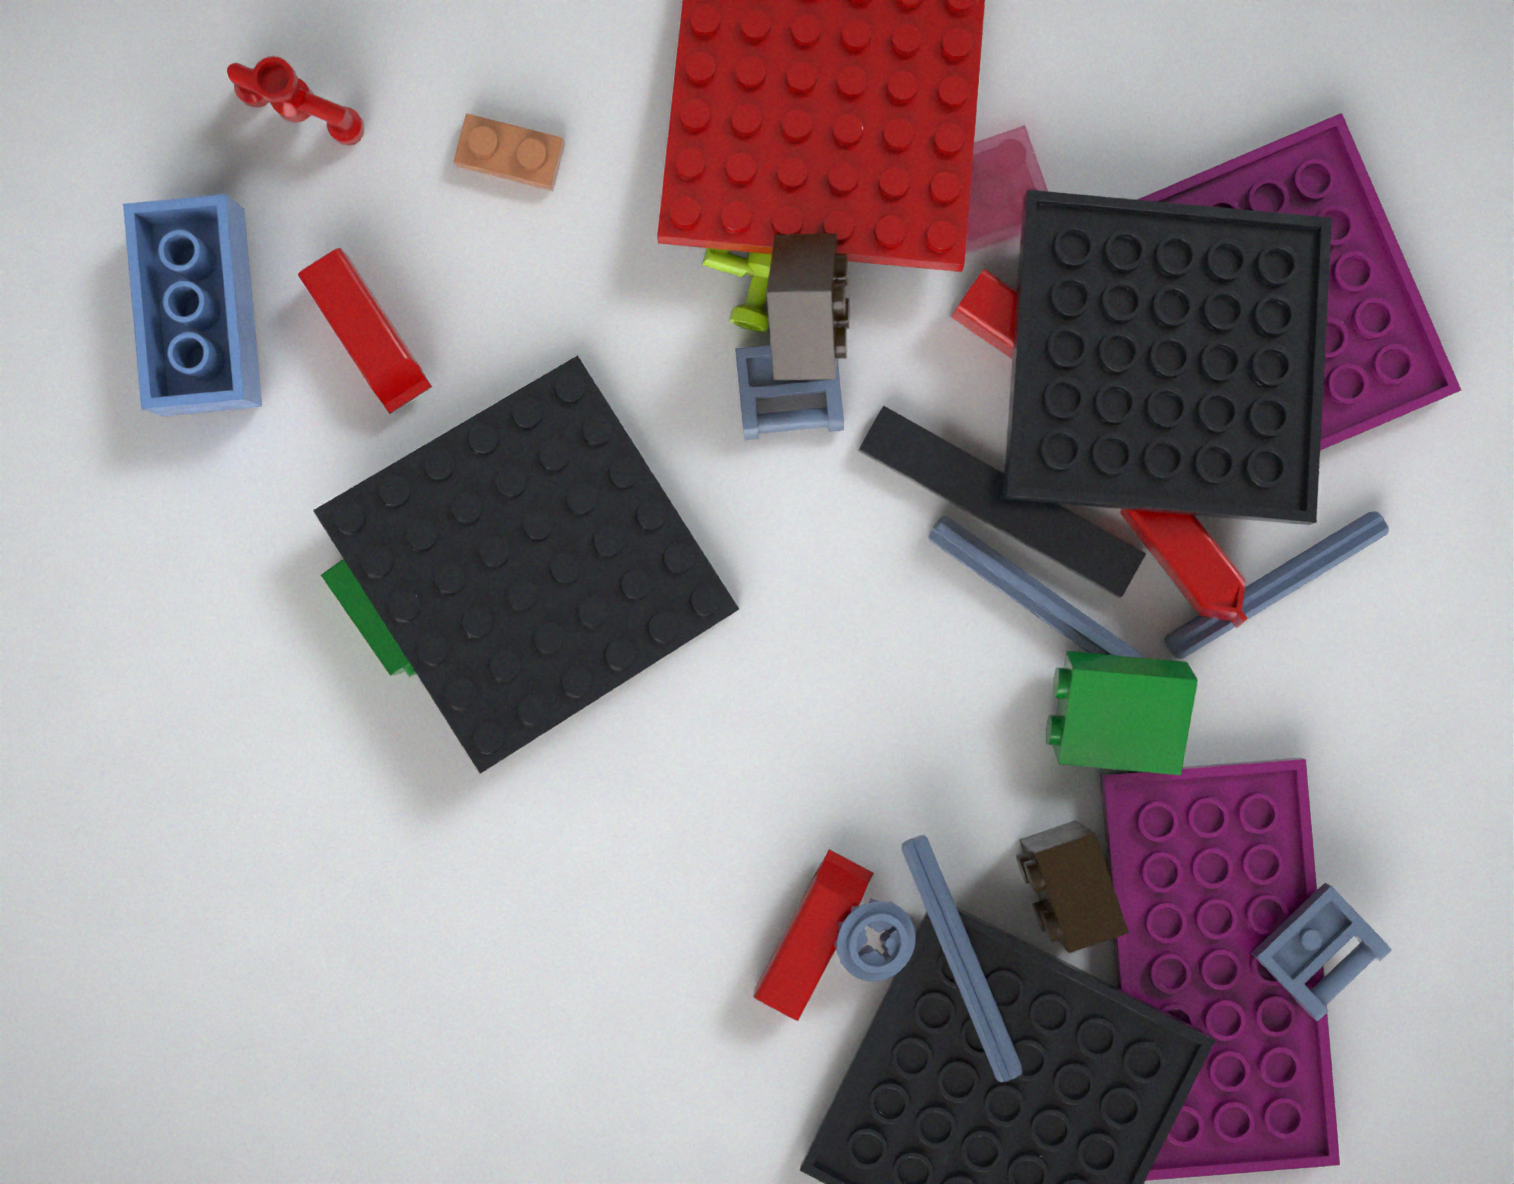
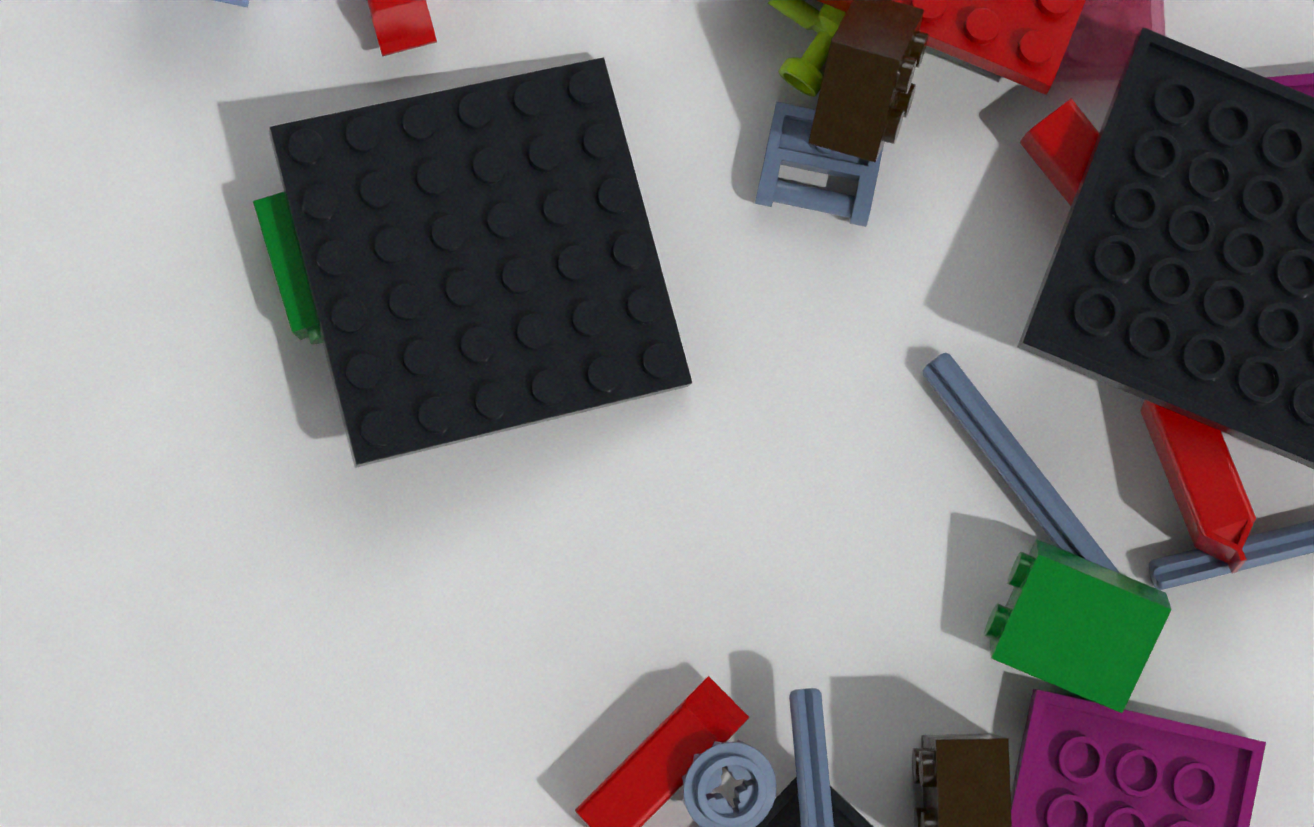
camera: 15 degrees right, 5 degrees down
(979, 491) = (991, 337): black tile -> none

